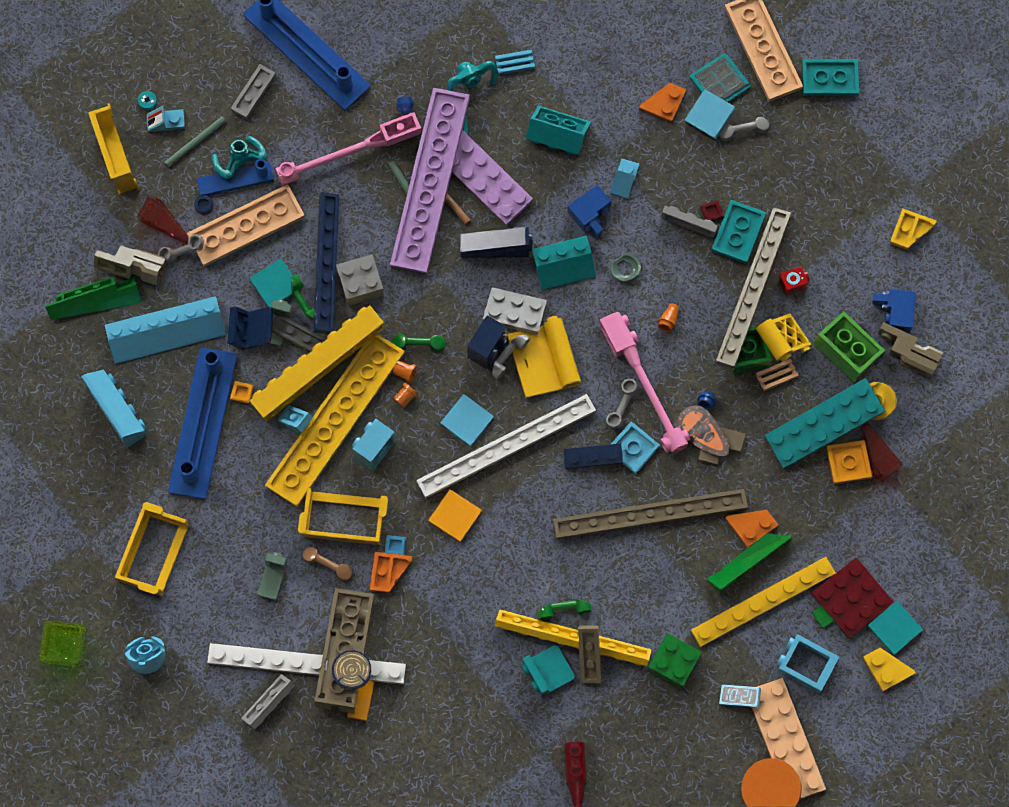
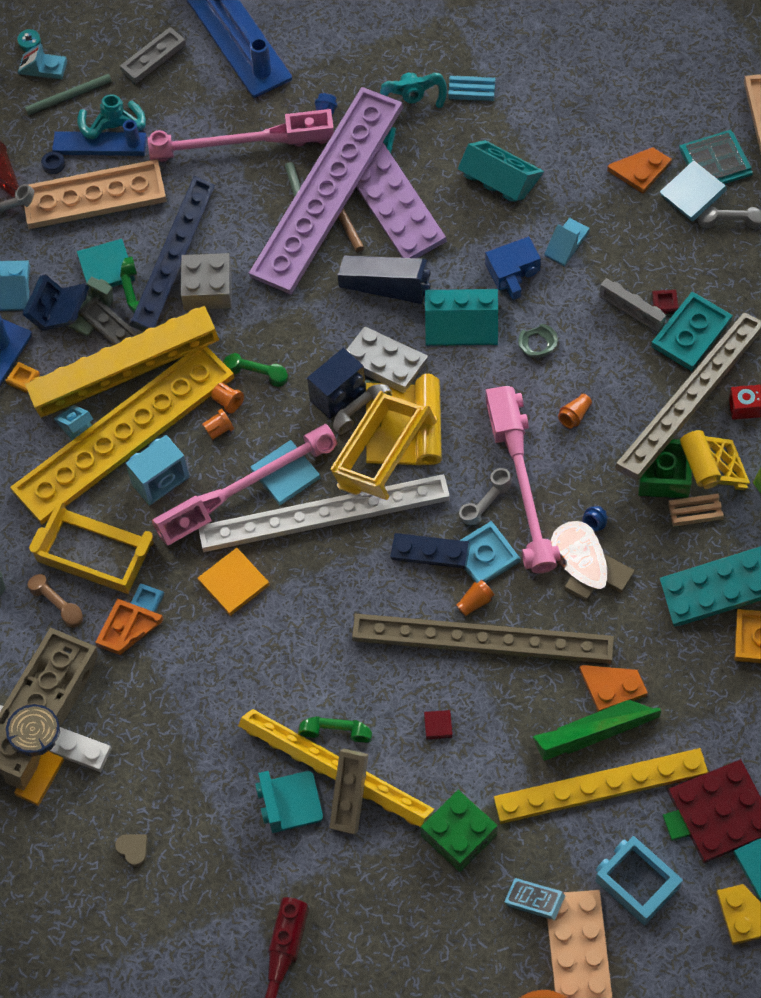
camera: 20 degrees right, 10 degrees down
(411, 472) = (196, 511): none -> bright pink bar
(446, 734) = (133, 848): none -> dark tan tile
(522, 418) = (356, 482): none -> yellow piece
(636, 484) = (475, 597): none -> orange cone
(636, 586) = (438, 724): none -> dark red tile

